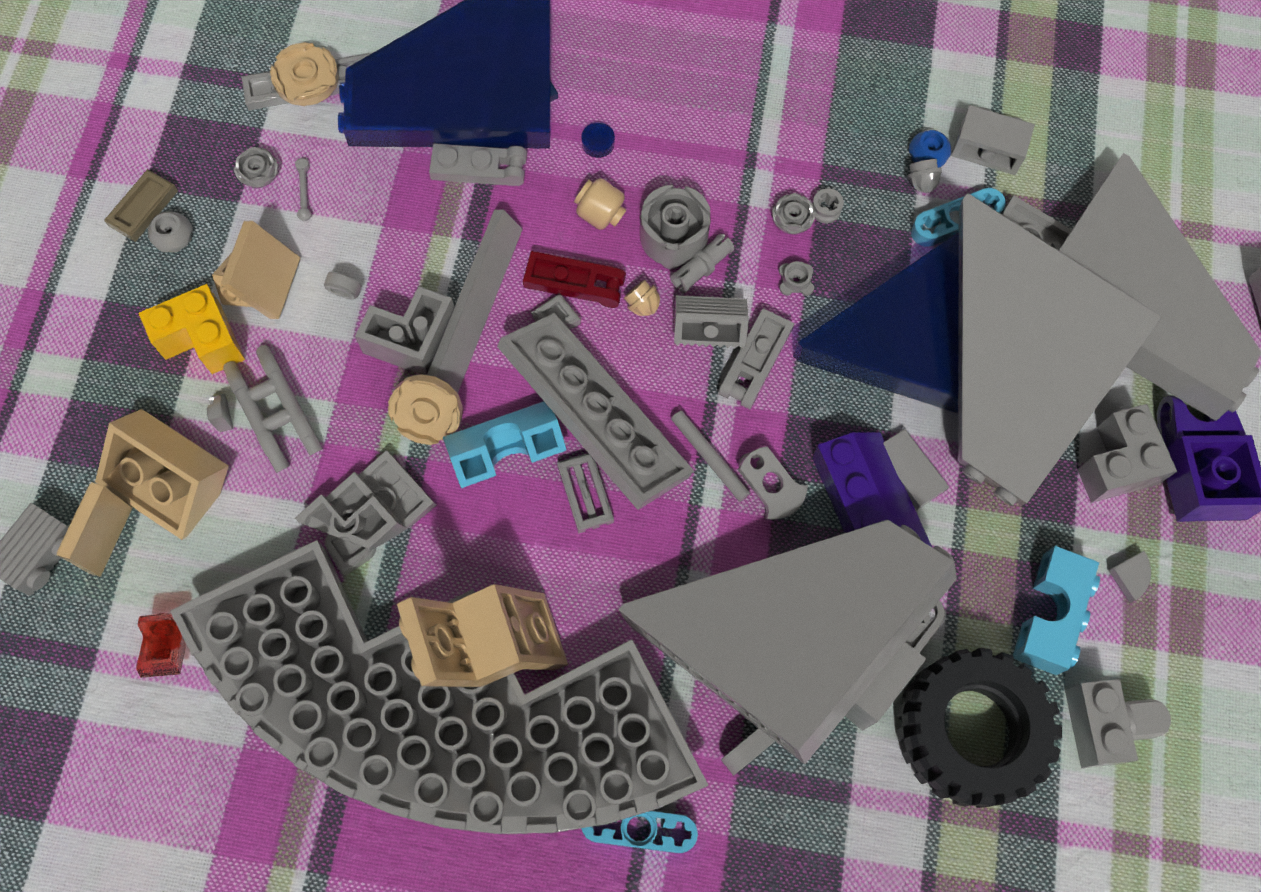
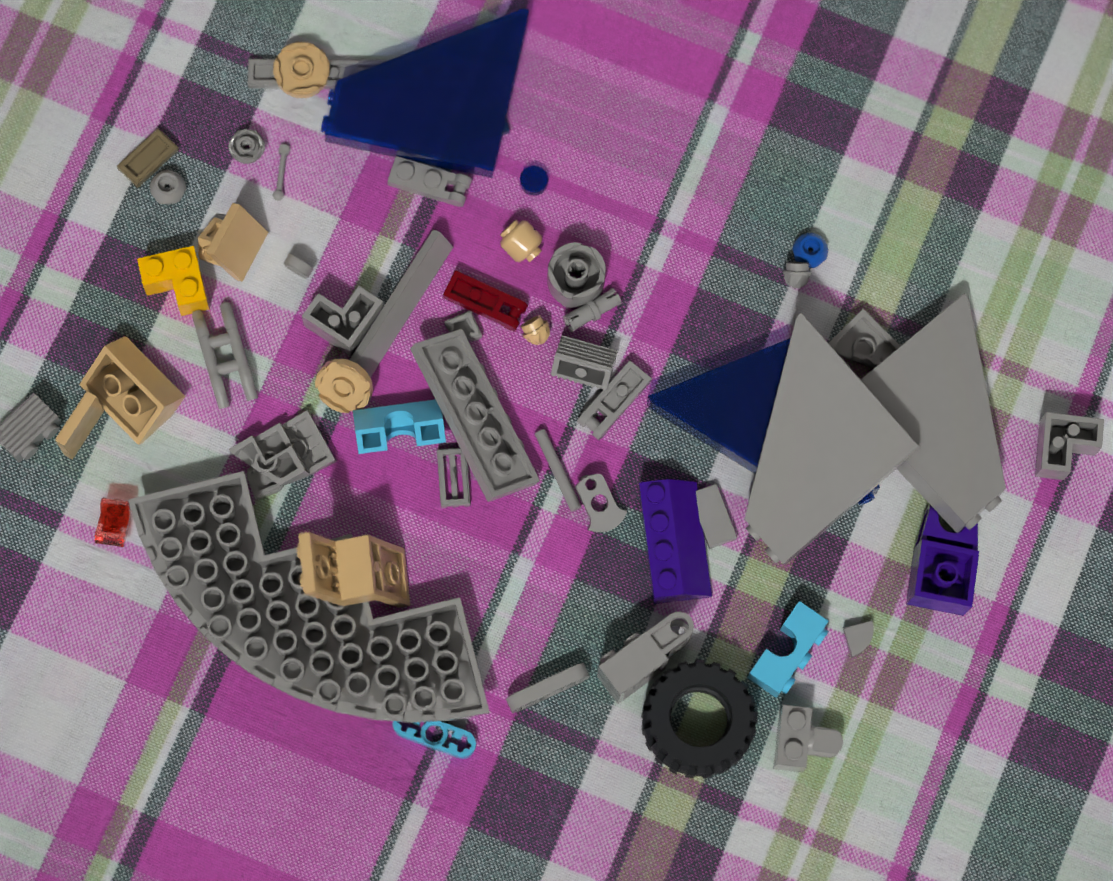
camera: 10 degrees right, 5 degrees up
(219, 413) = (183, 350): light grey tile -> none
(795, 205) = (678, 275): light grey plate -> none
(800, 270) = (671, 334): light grey plate -> none
(802, 629) = (583, 616): light grey slope -> none
(830, 197) = (714, 275): light grey bush -> none
(948, 227) = (834, 304): medium azure beam -> none
(993, 140) = (863, 254): light grey brick -> none
(1133, 458) = (887, 550): light grey brick -> none

